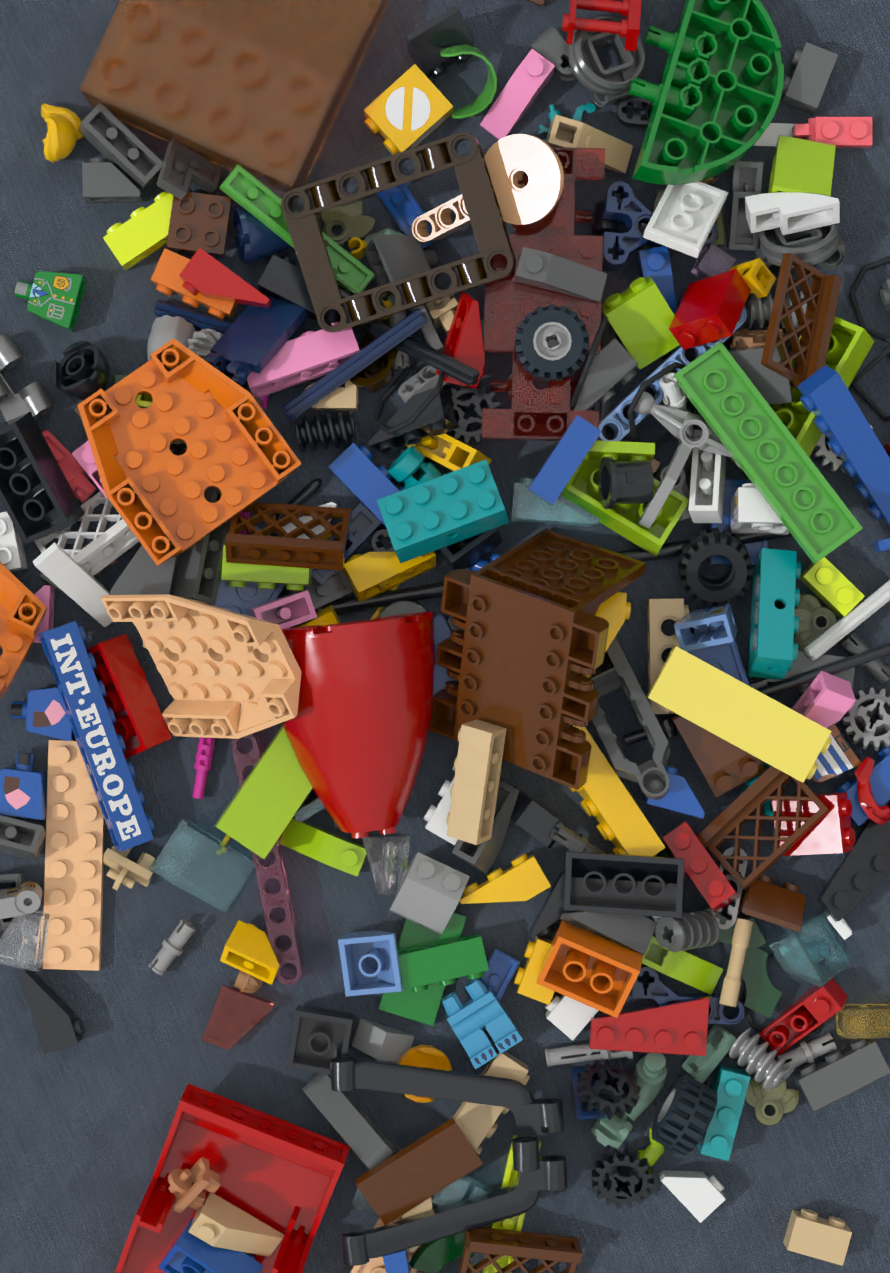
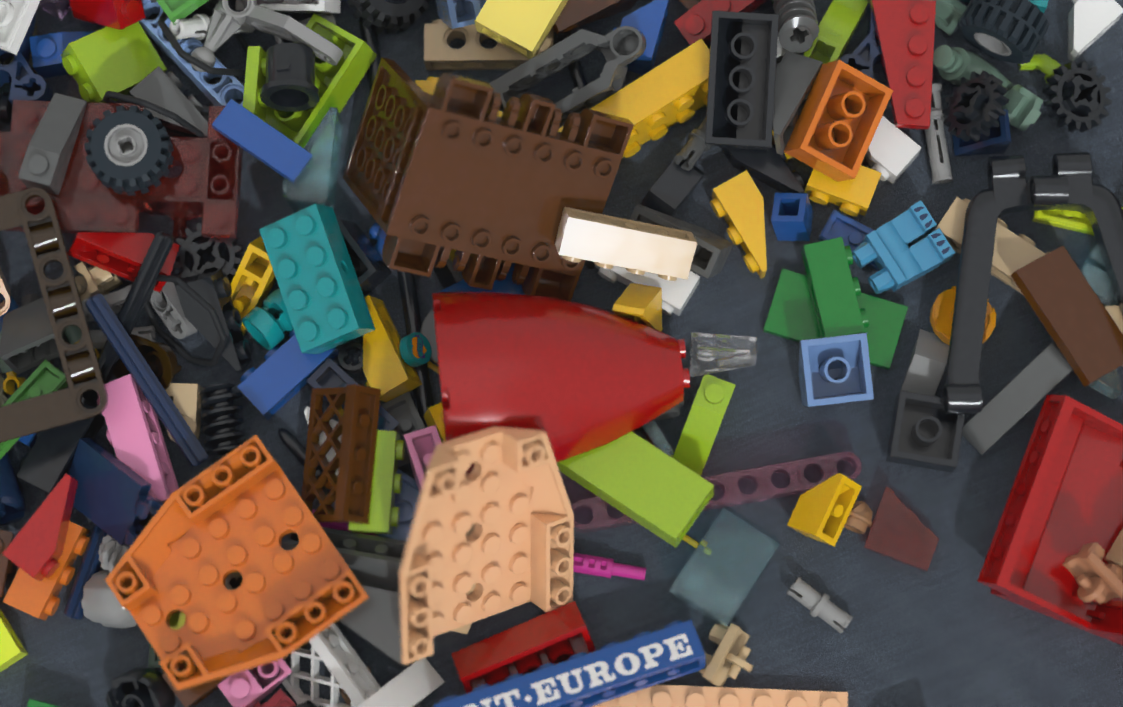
camera: 80 degrees left, 10 degrees down
(387, 597) = (415, 349): none -> teal tile
(427, 794) = (641, 304): none -> yellow slope
(429, 893) = (754, 306): light grey slope -> none
(510, 926) = (792, 216): none -> blue brick

